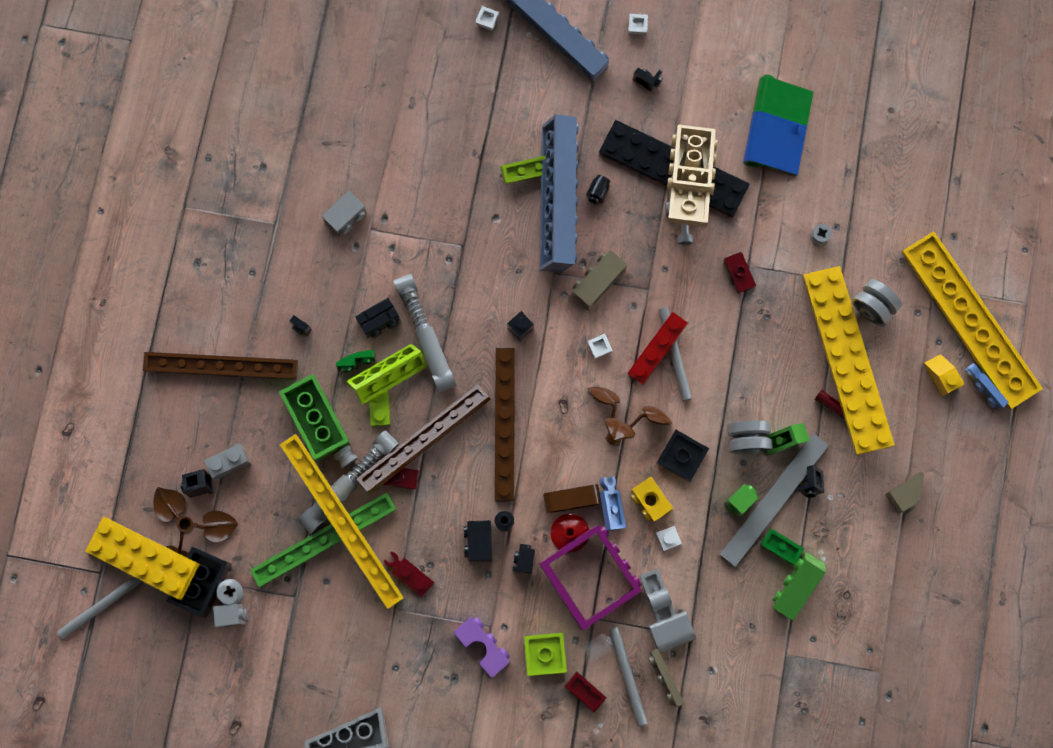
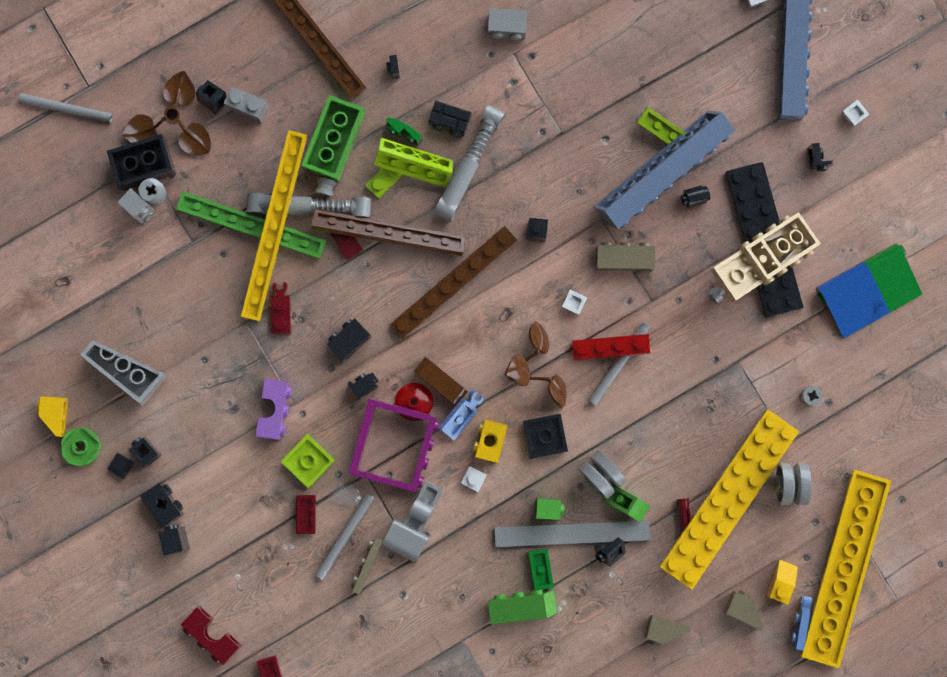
camera: 50 degrees right, 5 degrees up
(142, 558) = (123, 106): yellow plate -> none
(504, 527) = (381, 351): black brick -> none
(739, 272) = (726, 359): dark red plate -> none
(940, 420) = (743, 609): none -> dark tan slope

